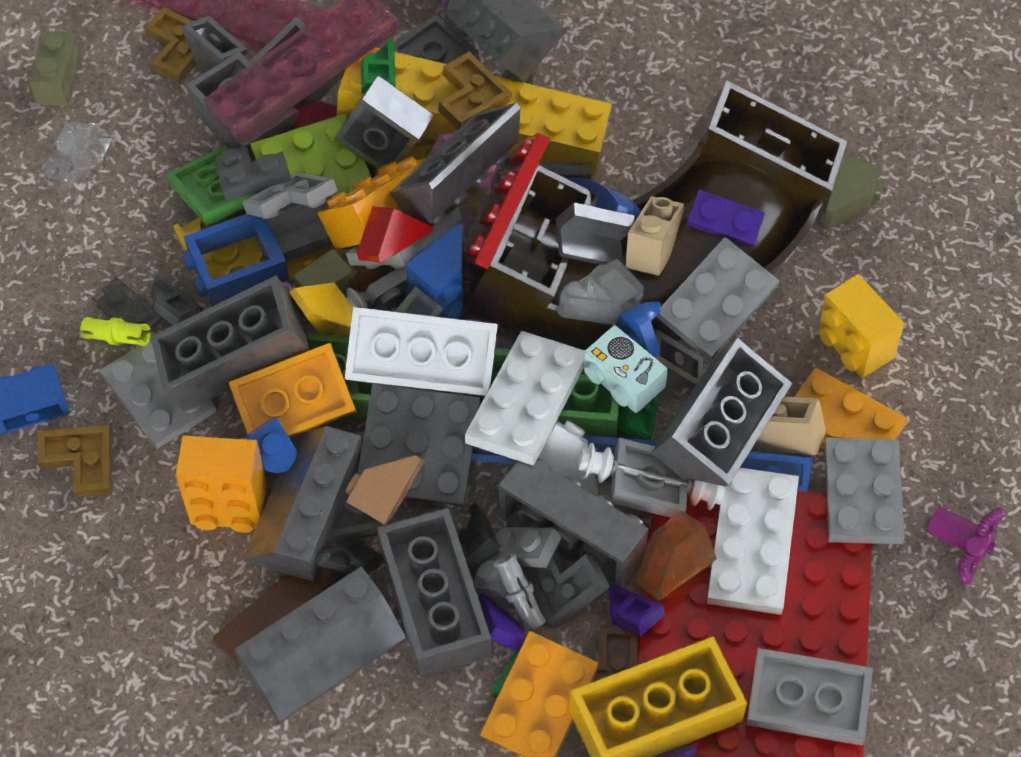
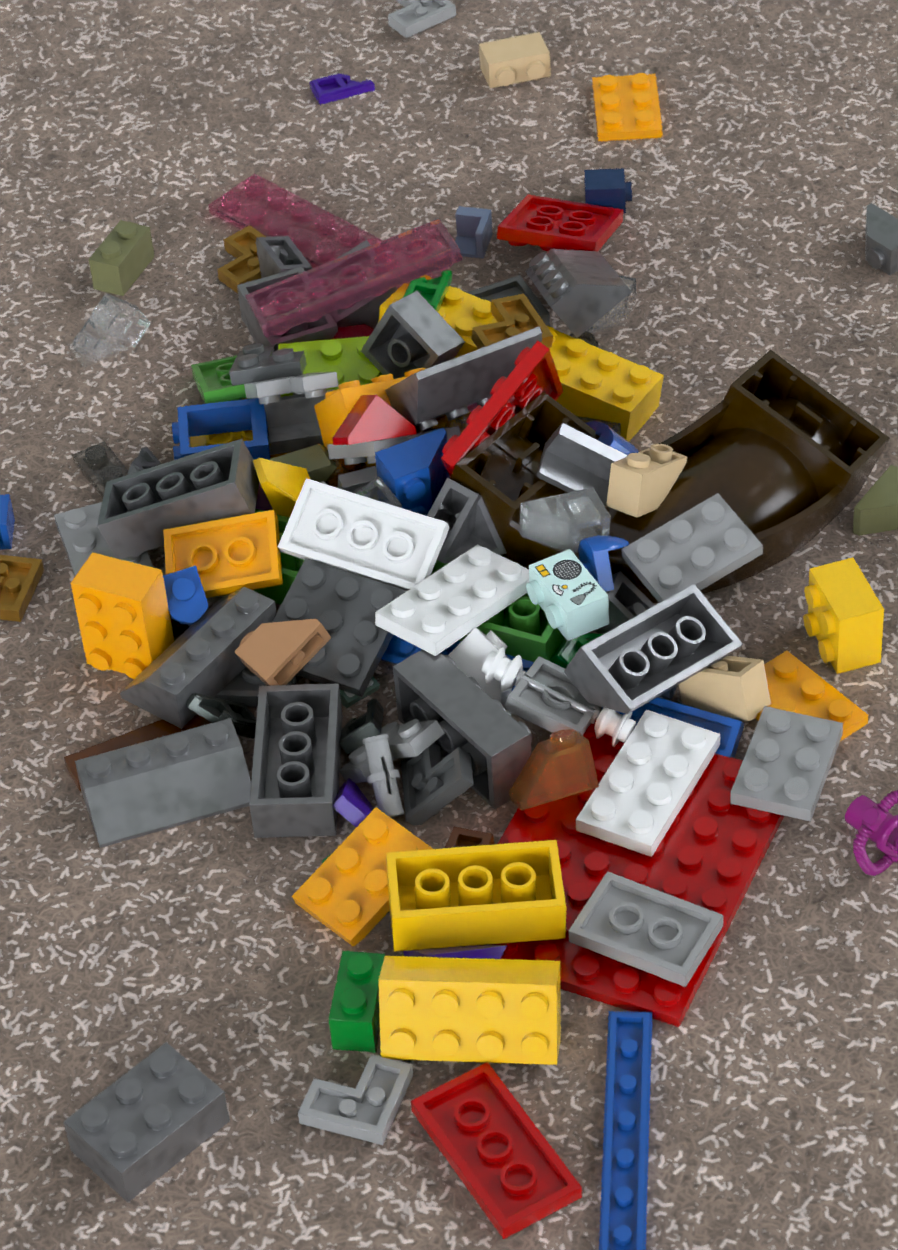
camera: 20 degrees right, 15 degrees down
(115, 331) = (79, 483): neon yellow pin -> none
(507, 308) = (467, 520): none -> flat silver slope
(633, 611) = (495, 818): dark purple tile -> none
(725, 218) = (728, 477): dark purple plate -> none

